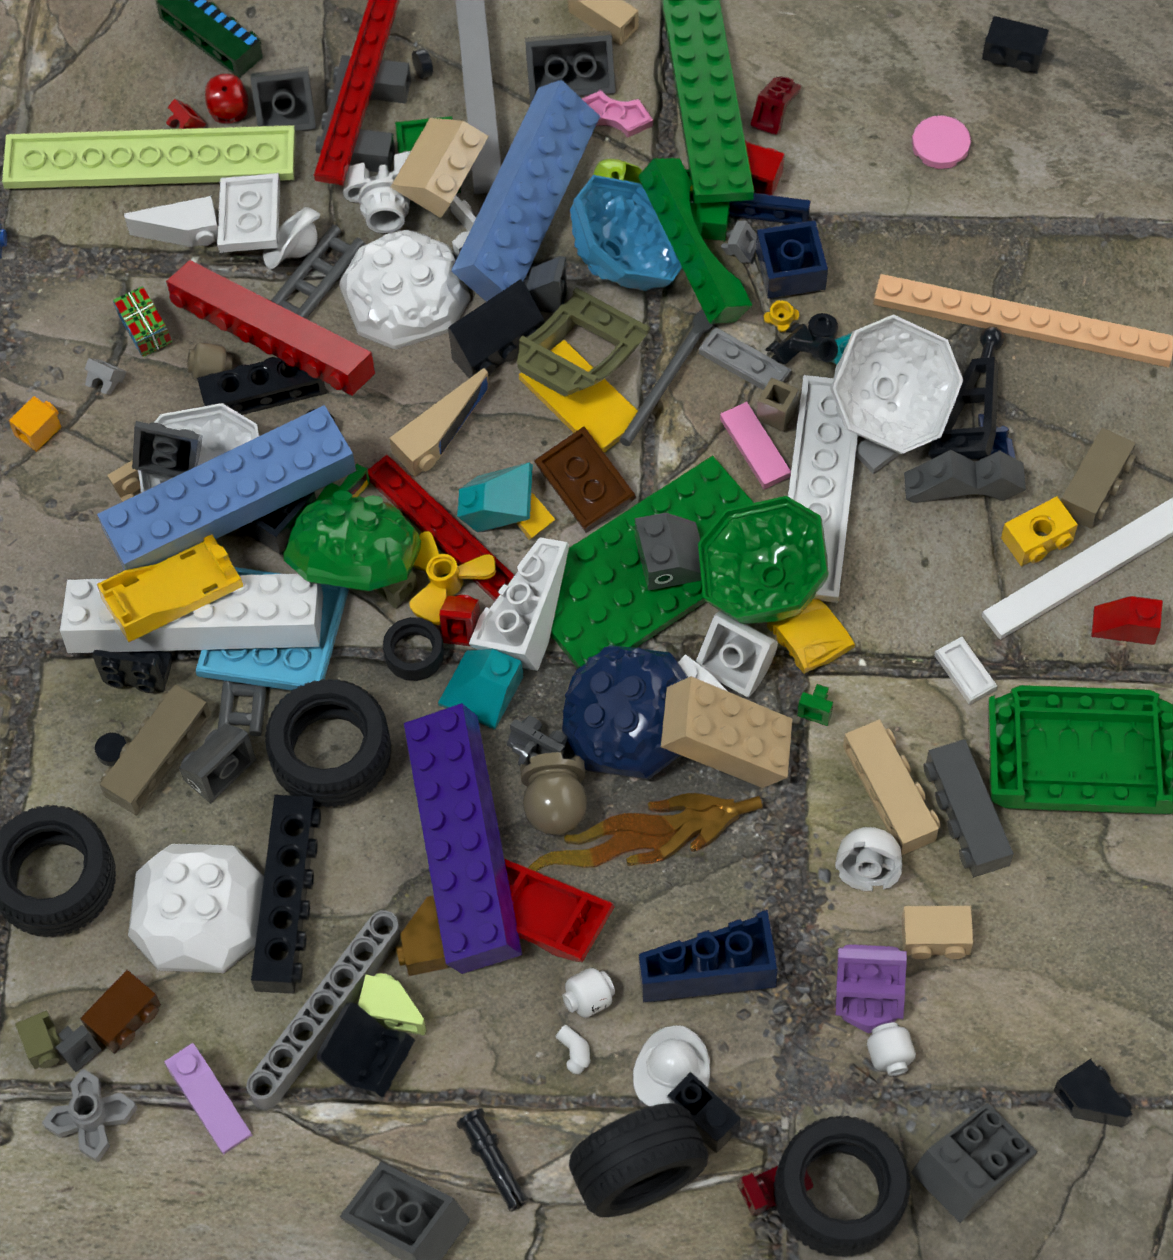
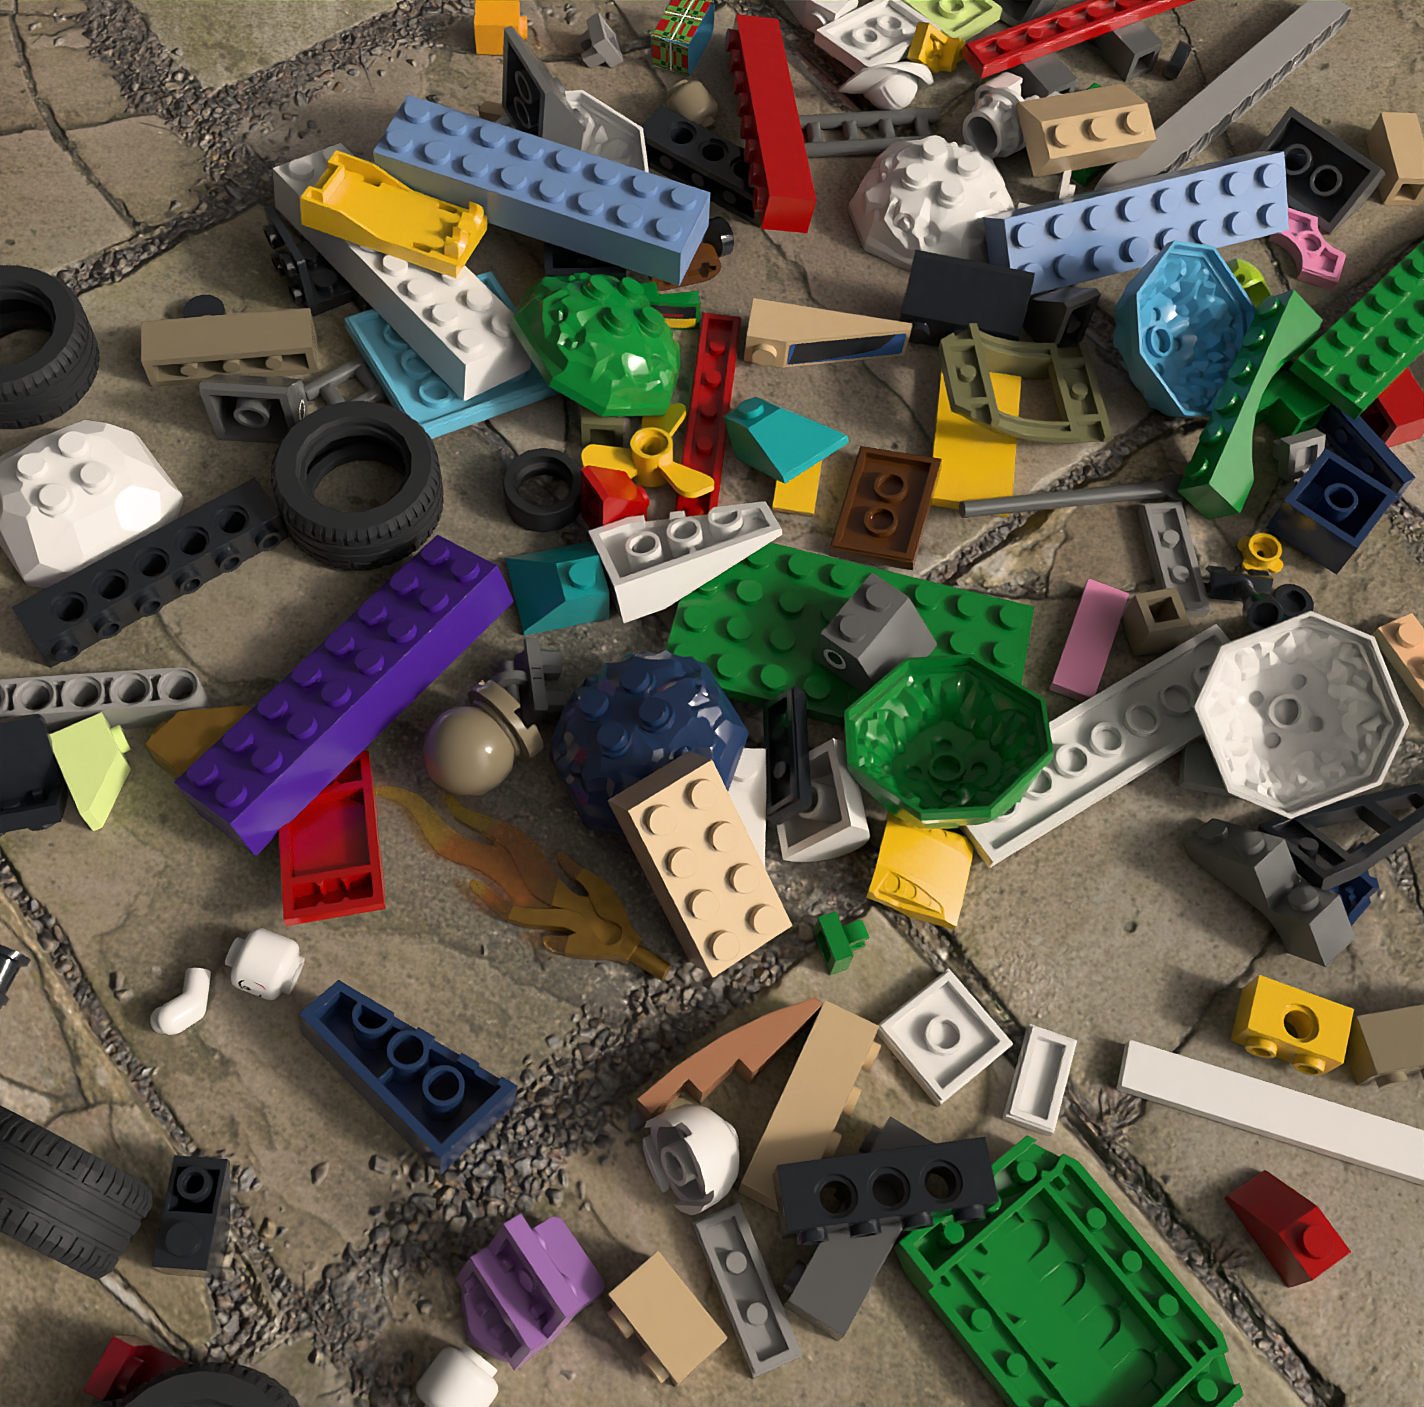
camera: 40 degrees right, 0 degrees up
(292, 189) = (935, 49): none -> yellow slope
(666, 1061) = (244, 1121): white hat -> none
(687, 639) = (786, 756): none -> black tile
(835, 798) = (743, 1050): none -> nougat slope
(906, 697) = (943, 1037): none -> white tile
(951, 886) = (746, 1290): none -> light grey tile
(983, 735) = (960, 1163): none -> black brick

